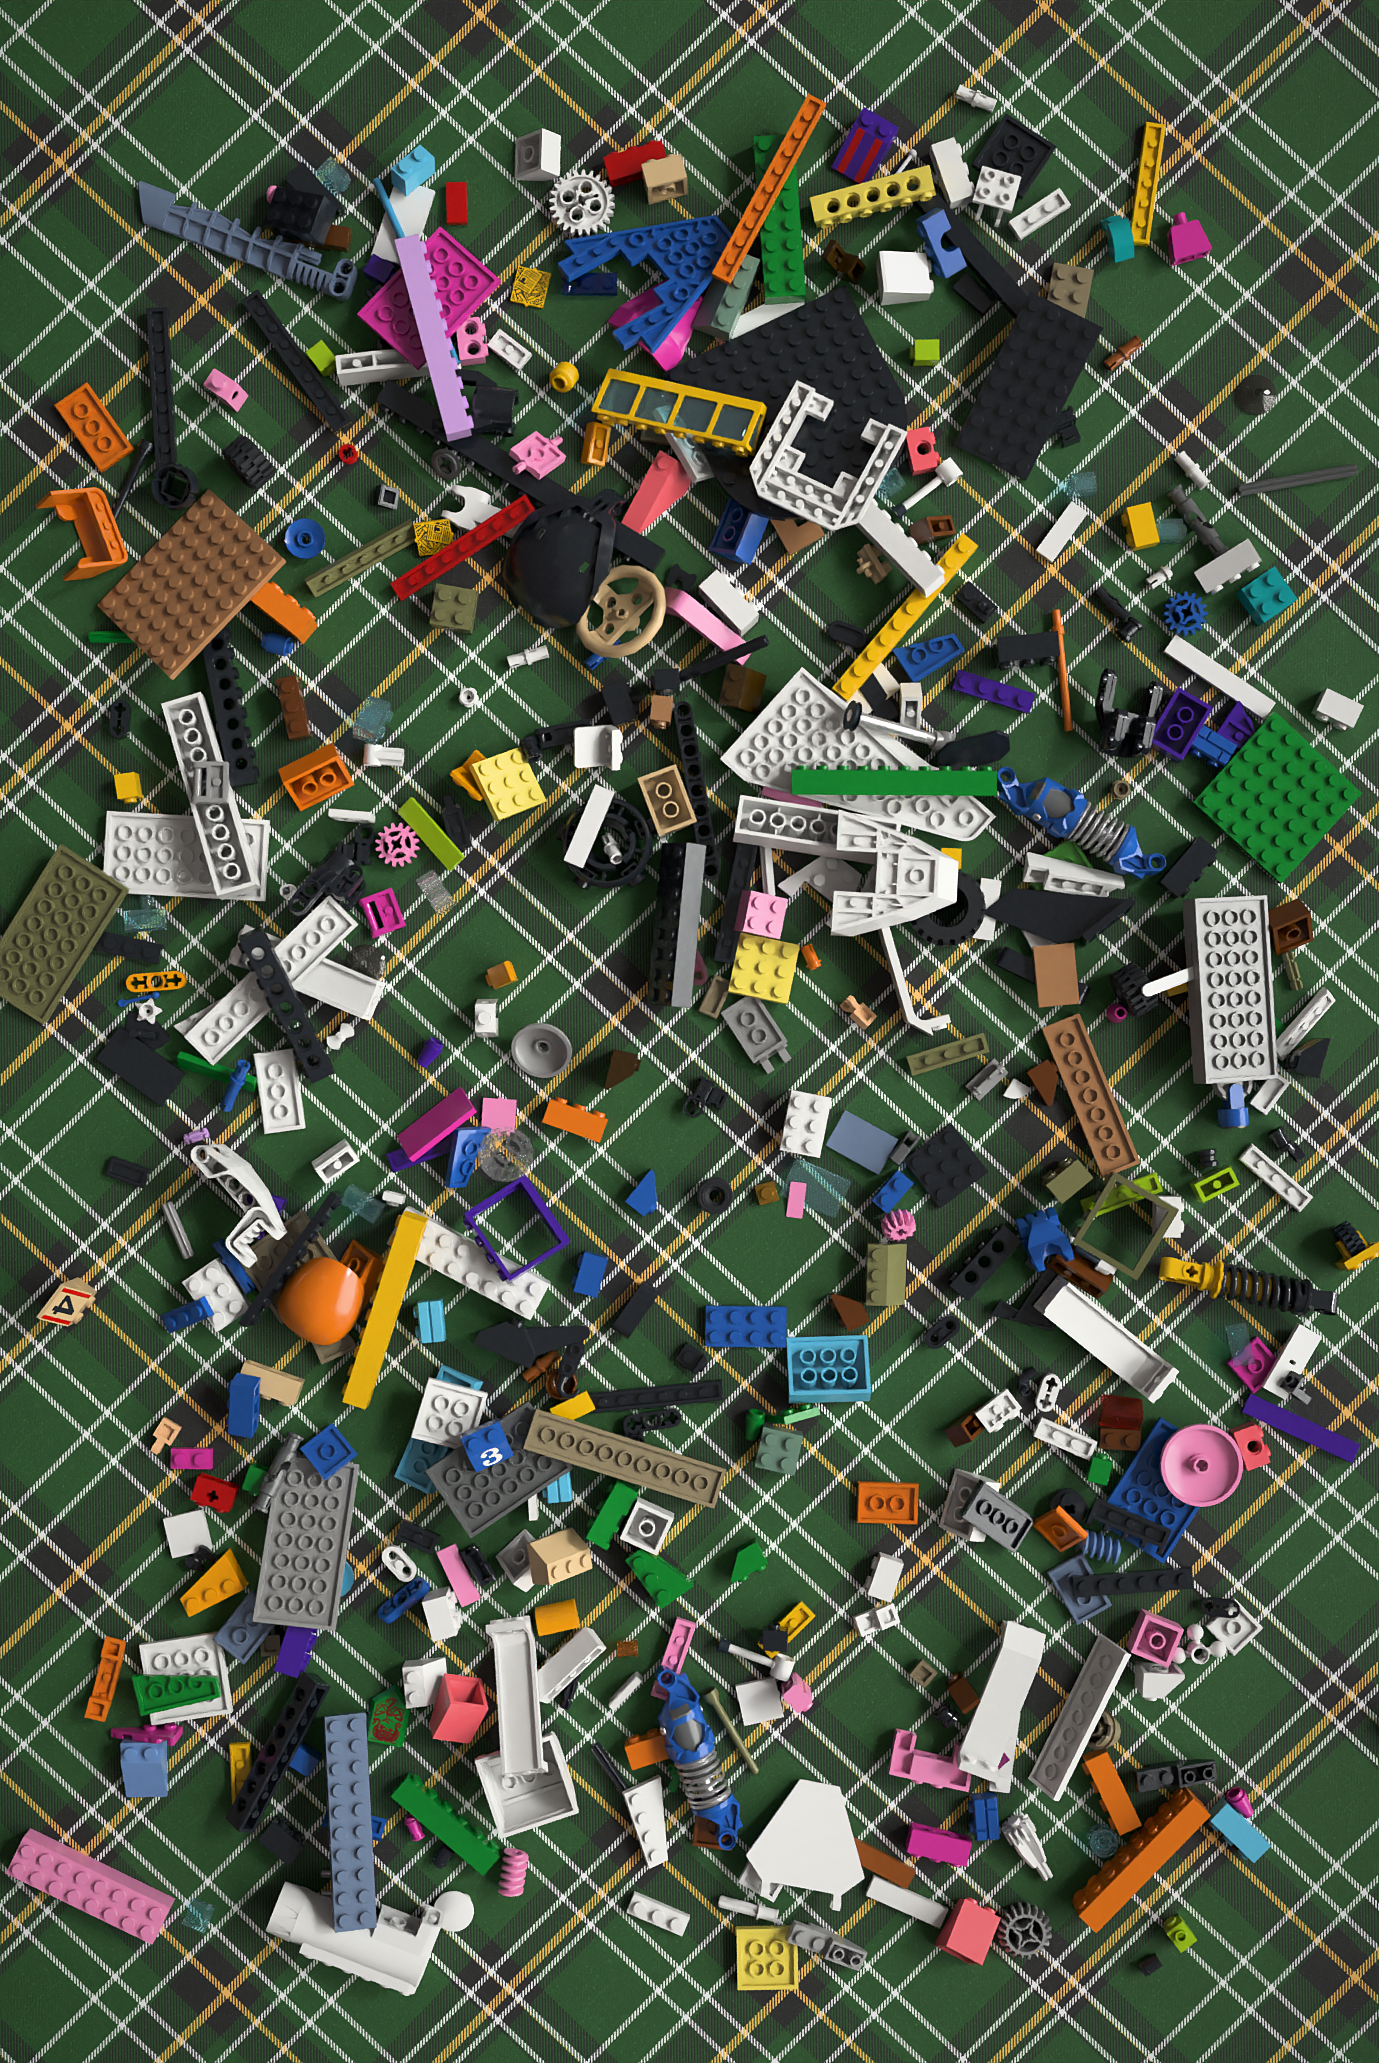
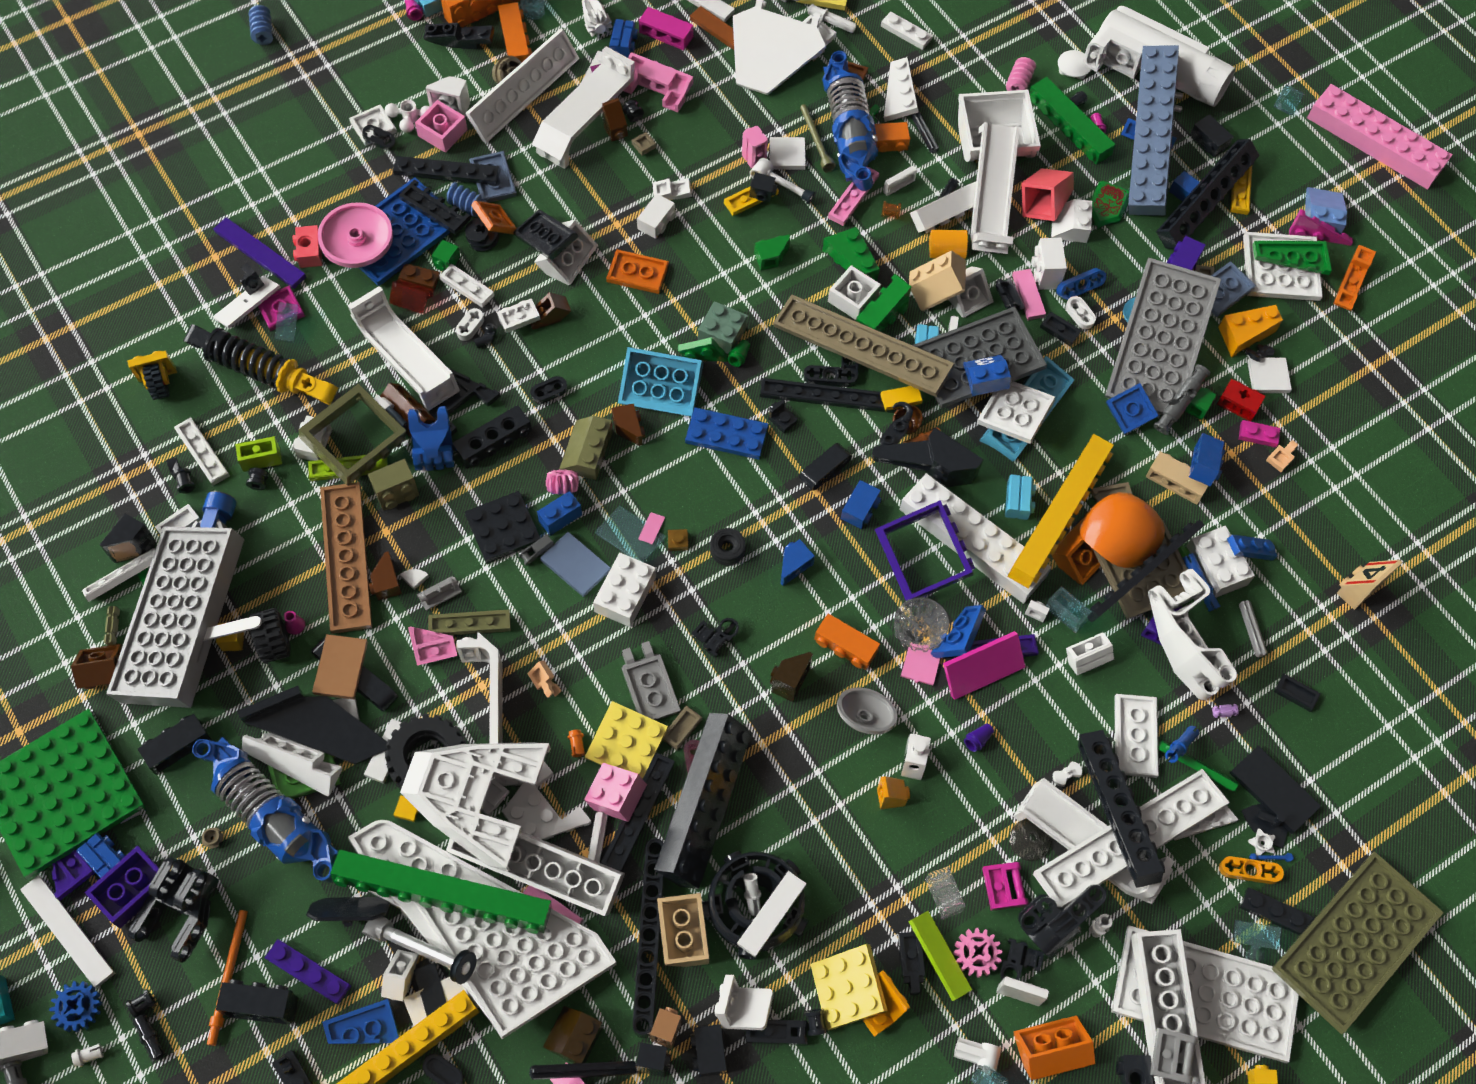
camera: 170 degrees left, 25 degrees down
(976, 1021) = (431, 645): none -> bright pink wing

